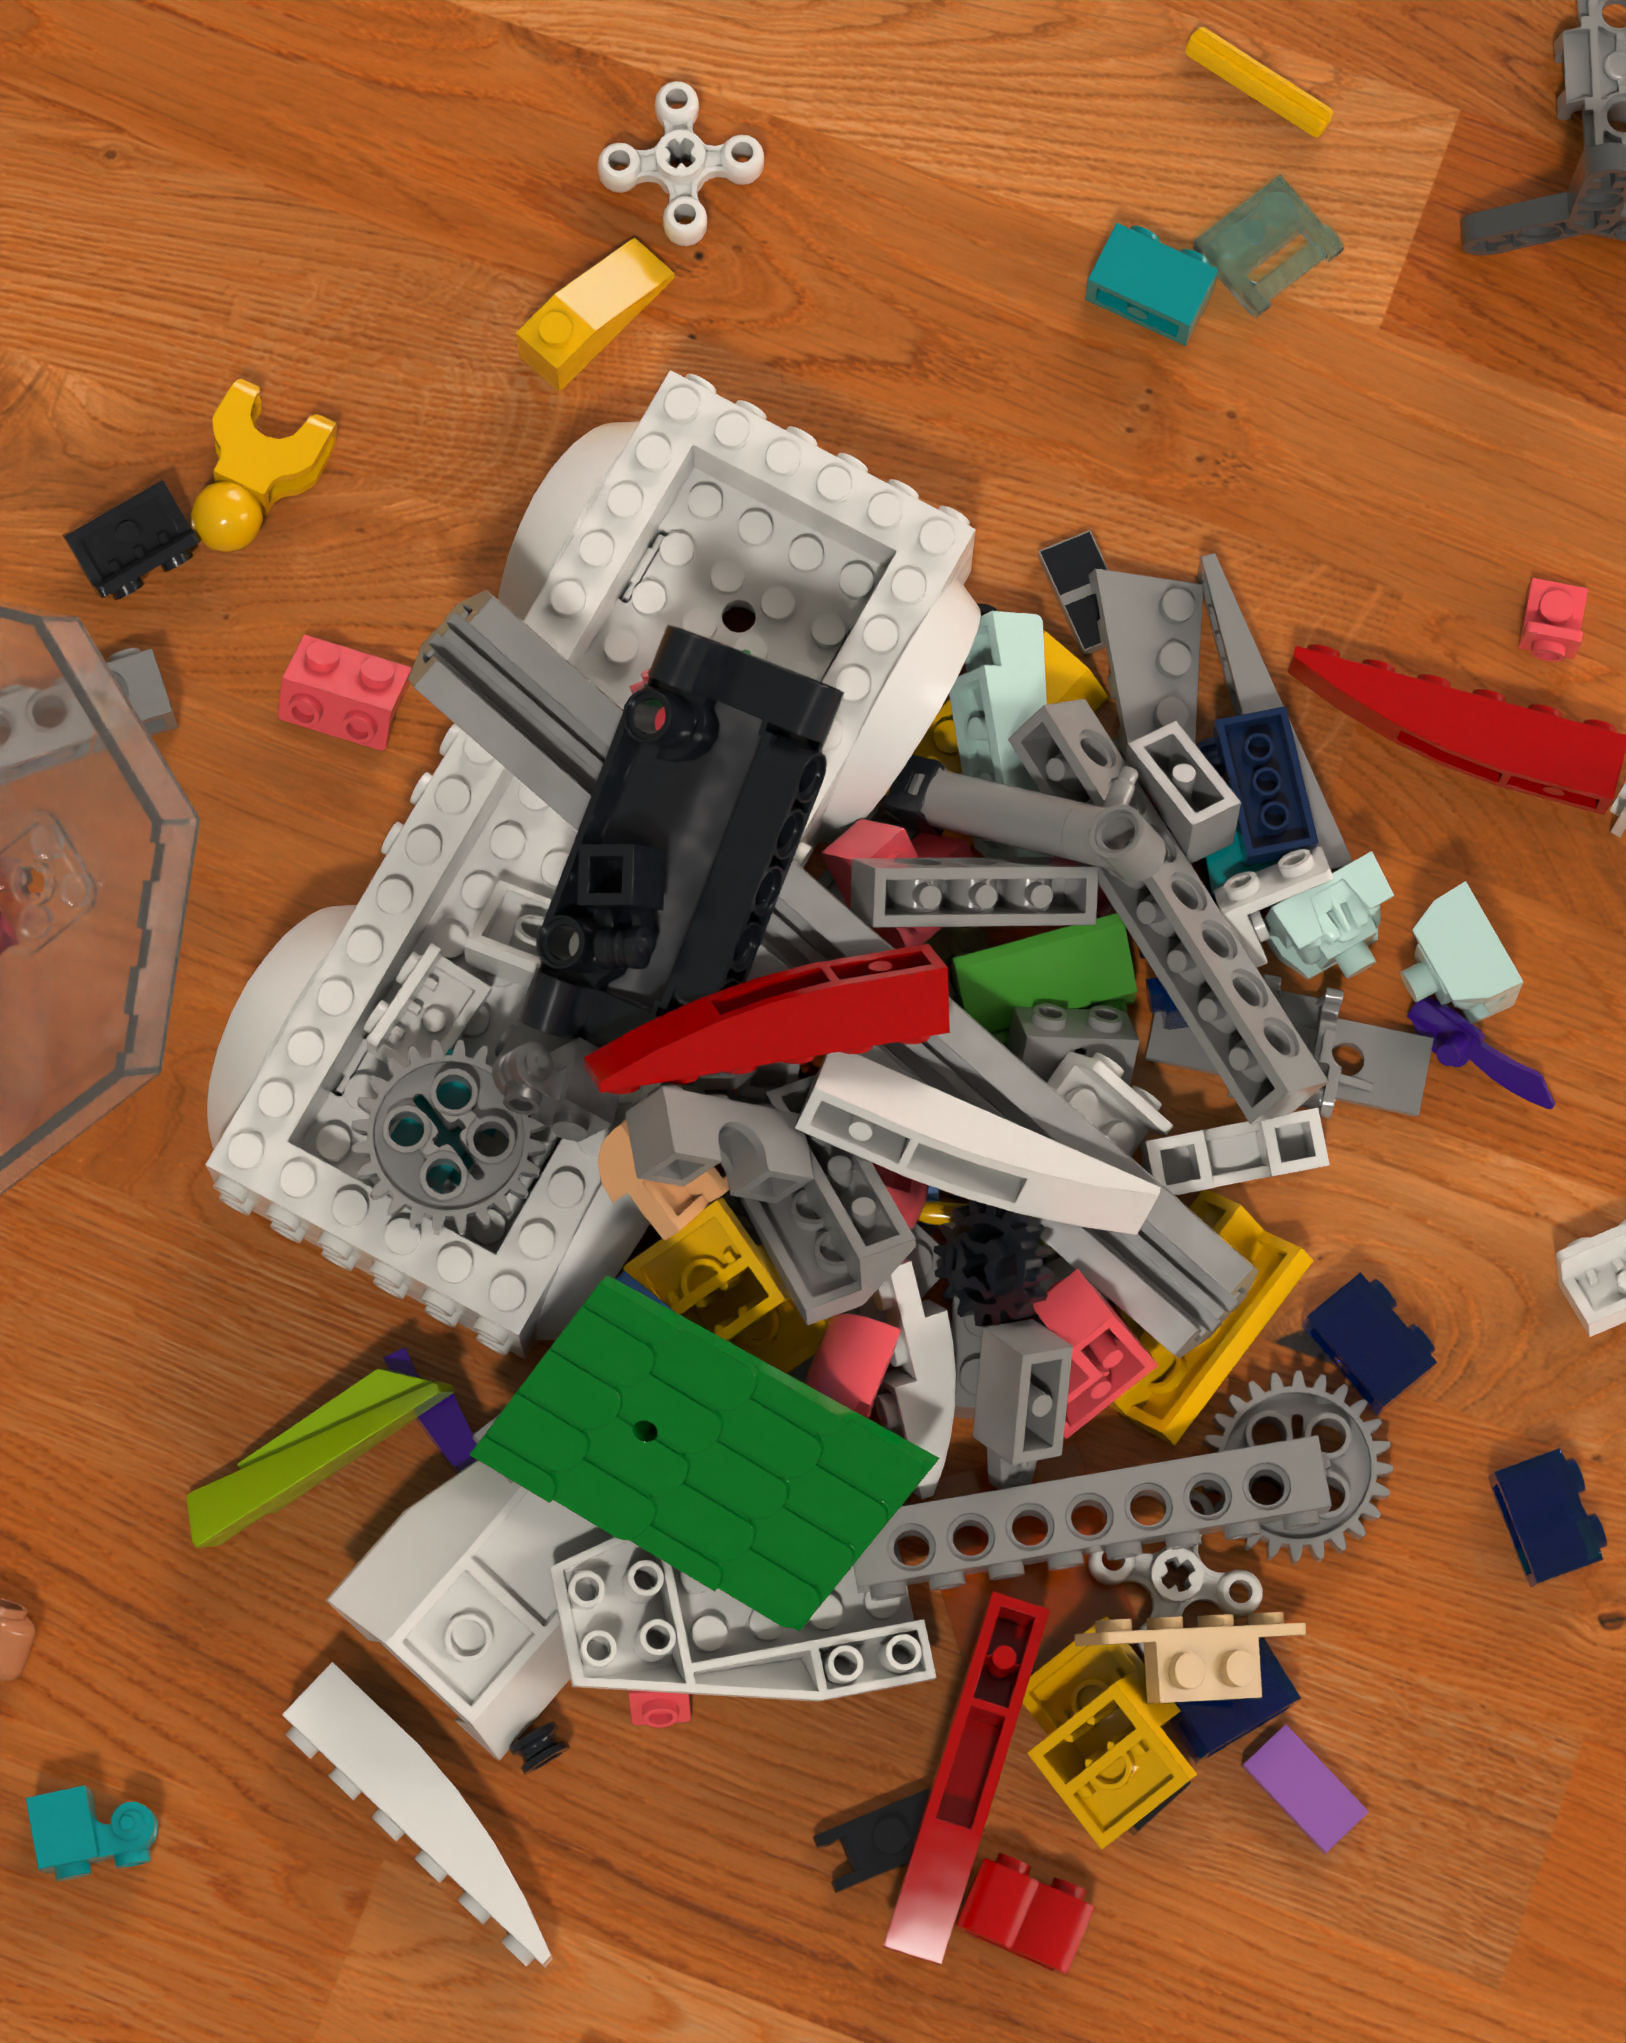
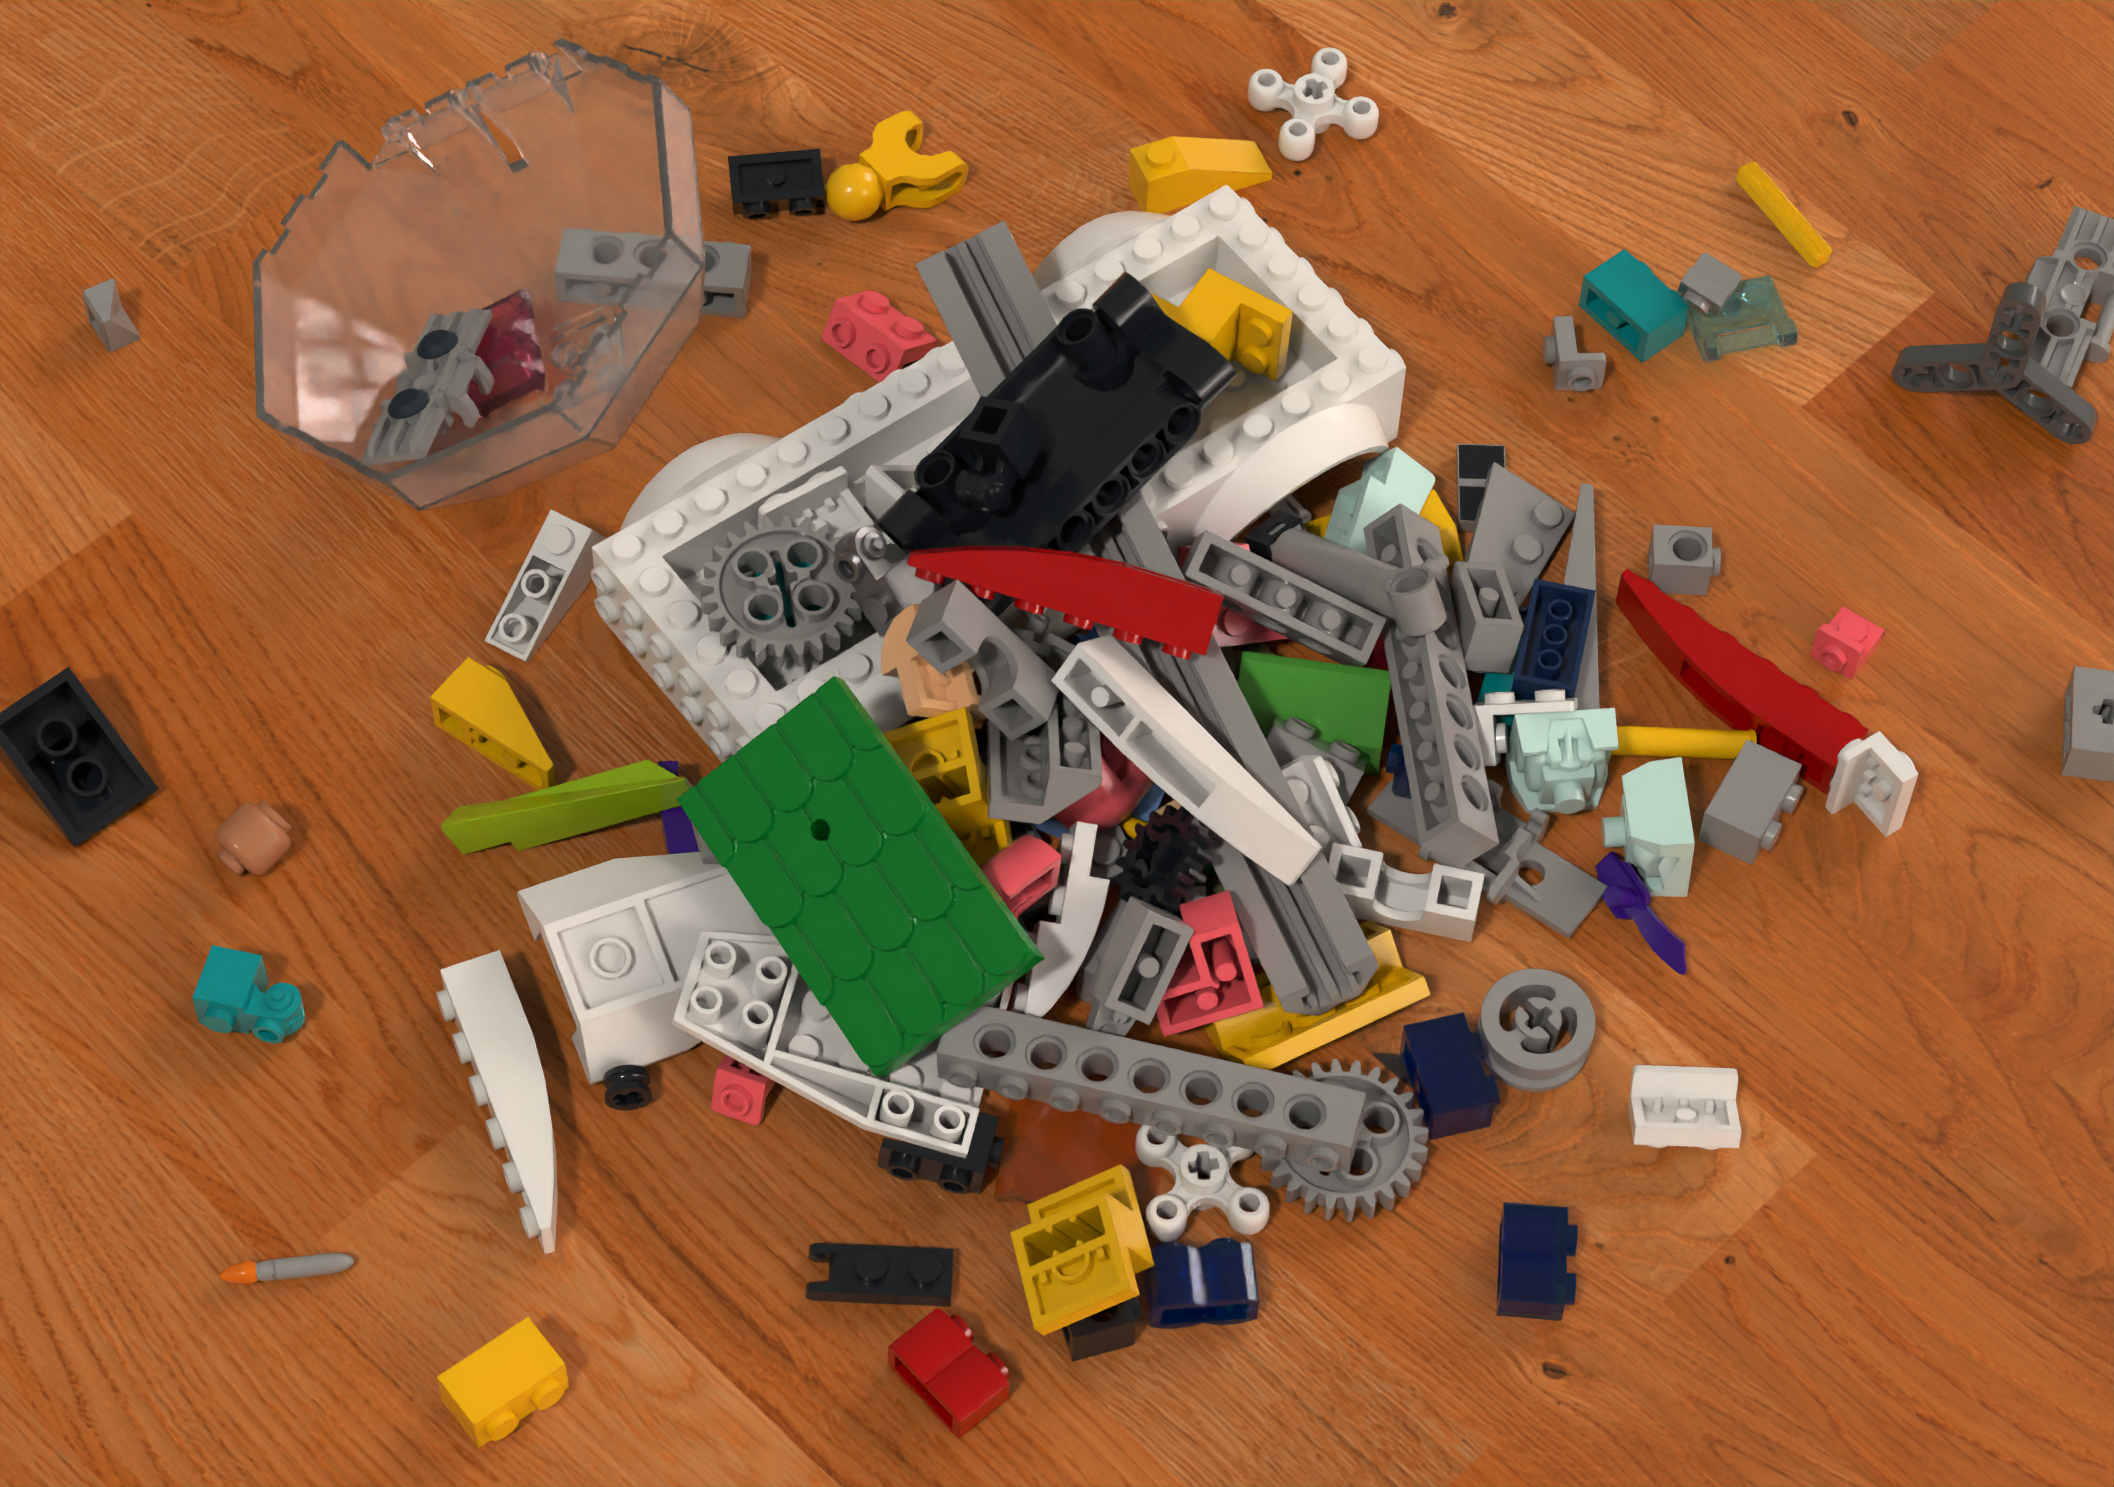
camera: 25 degrees right, 20 degrees down
(144, 1184) = (545, 586): none -> white slope
(166, 1376) = (486, 716): none -> yellow slope
(743, 569) = (1236, 323): none -> yellow bracket
(946, 1653) = (949, 1171): none -> black bracket
(966, 1777) = (955, 1231): red slope -> none
(1100, 382) = (1569, 368): none -> light grey bracket
(1198, 1662) = (1182, 1219): tan bracket -> none
(1230, 235) = (1708, 285): none -> light grey bracket
(1305, 1789) = (1231, 1382): medium lavender tile -> none
(1325, 615) = (1667, 555): none -> light grey brick
(1437, 824) = (1681, 742): none -> yellow pin
(1451, 1205) = (1550, 1005): none -> light grey wheel
(1539, 871) = (1750, 803): none -> light grey brick

